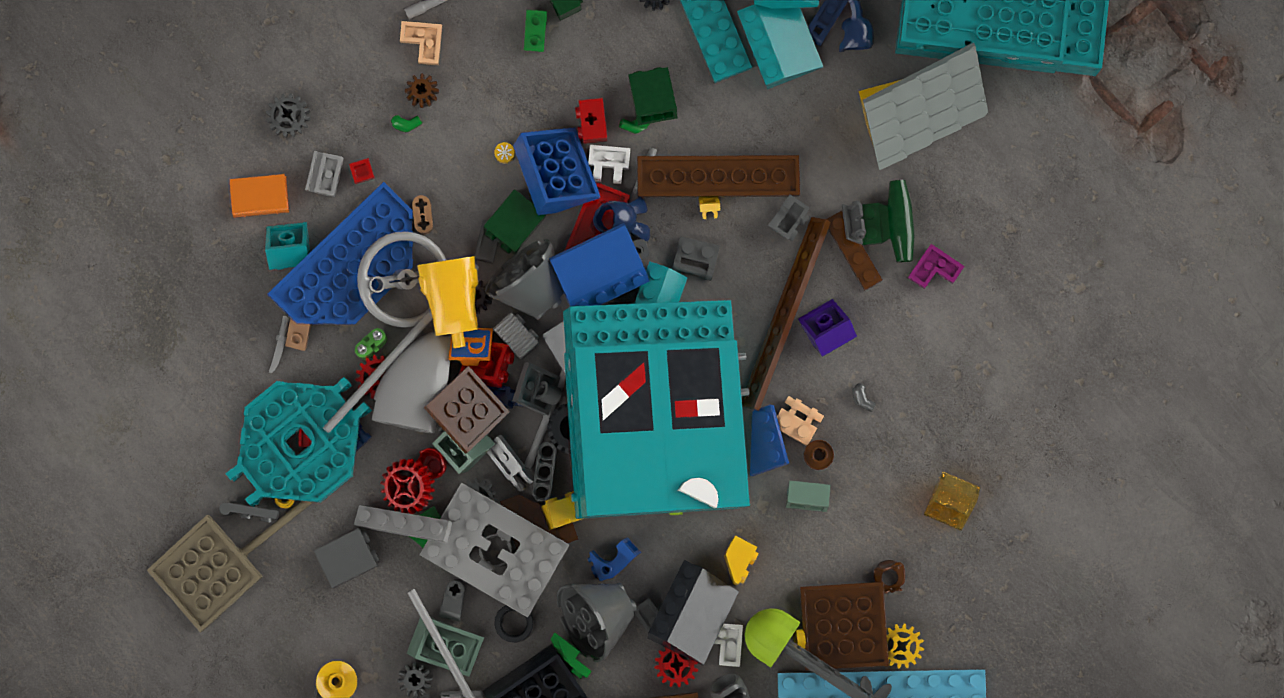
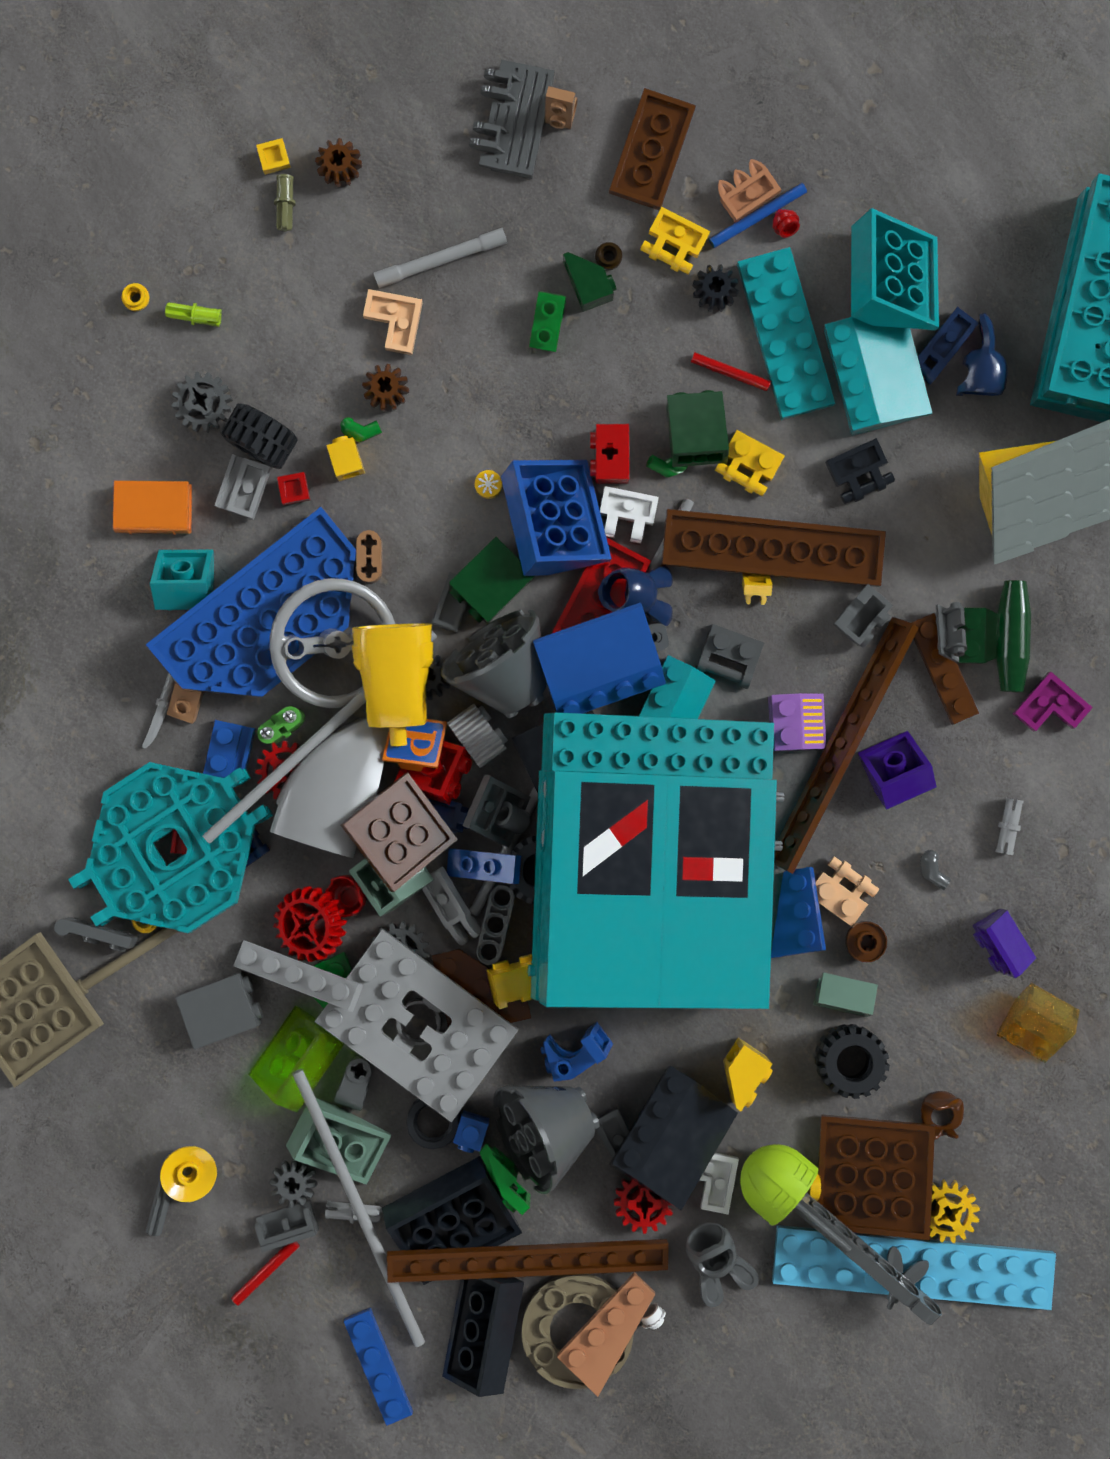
camera: 10 degrees right, 5 degrees up
(230, 39) = (132, 289): none -> yellow plate
(275, 52) = (194, 313): none -> lime axle
(333, 135) = (259, 436): none -> black tyre
(333, 365) = (228, 748): none -> blue plate
(397, 145) = (345, 458): none -> yellow brick
(406, 575) = (295, 1046): none -> clear neon green slope
(531, 429) = (484, 866): none -> blue plate
(542, 627) = (471, 1132): none -> blue brick
(673, 52) = (730, 371): none -> red bar
(695, 111) = (753, 456): none -> yellow plate
(701, 490) = (706, 984): white tile -> none
(750, 300) = (797, 721): none -> medium lavender slope
(773, 108) = (856, 463): none -> black plate
(799, 543) = (870, 1075): none -> black tyre
(914, 359) = (1009, 826): none -> light grey pin
(919, 444) = (1004, 943): none -> dark purple slope

